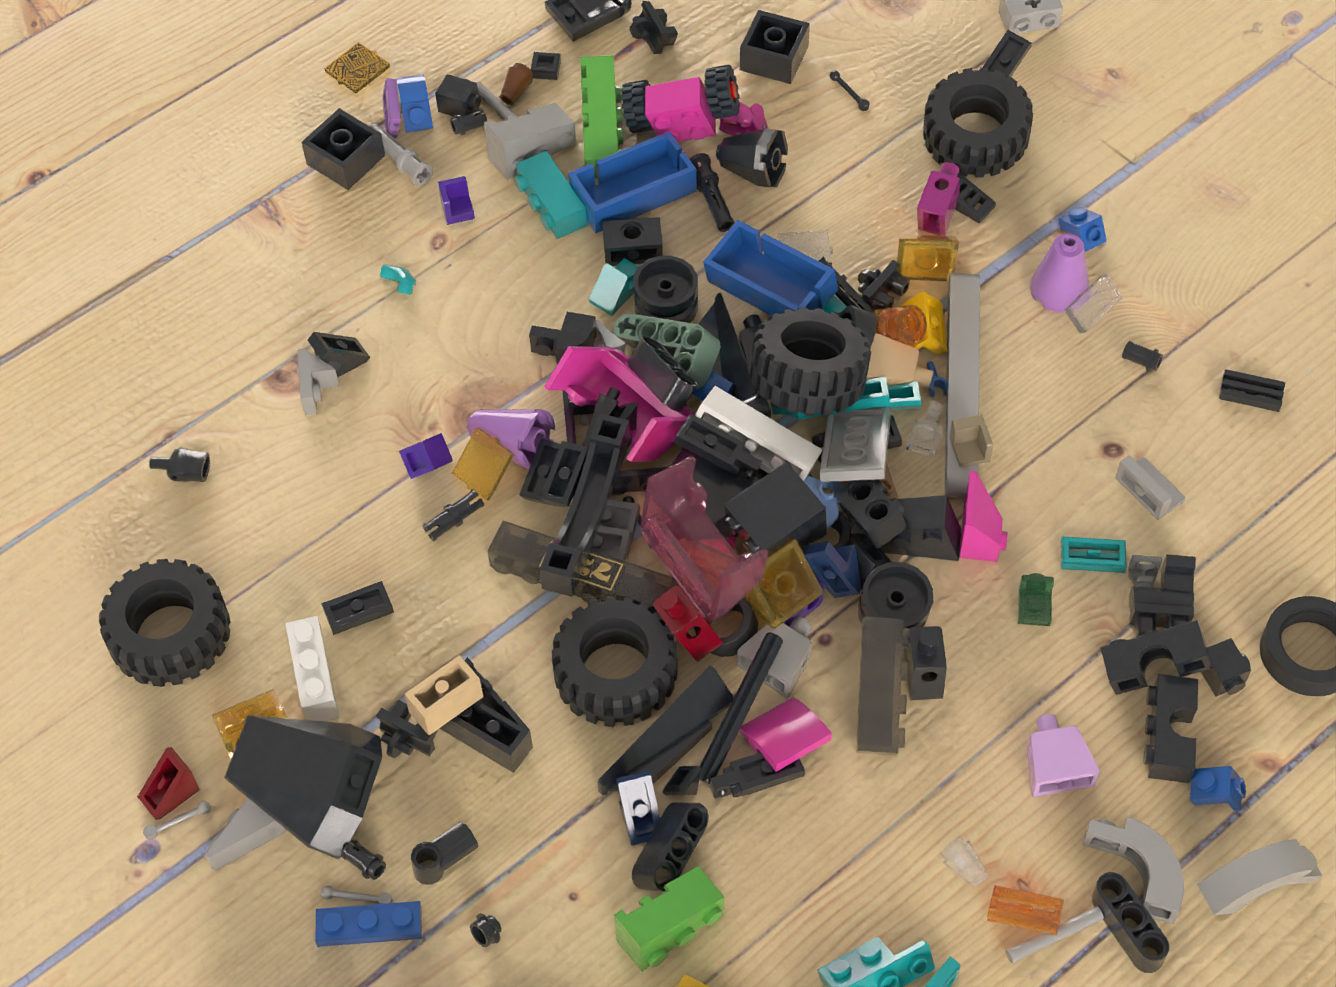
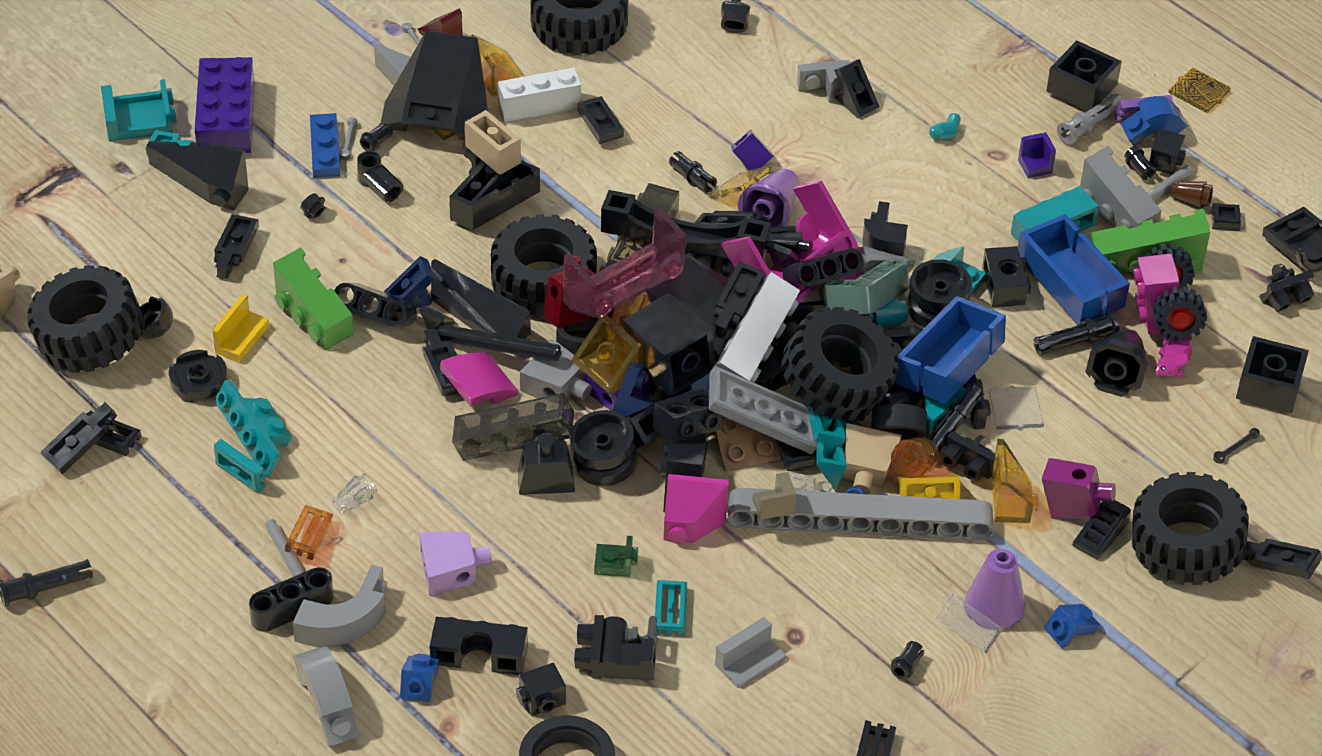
camera: 85 degrees right, 10 degrees down
(1128, 659) = (546, 627): black arch -> none

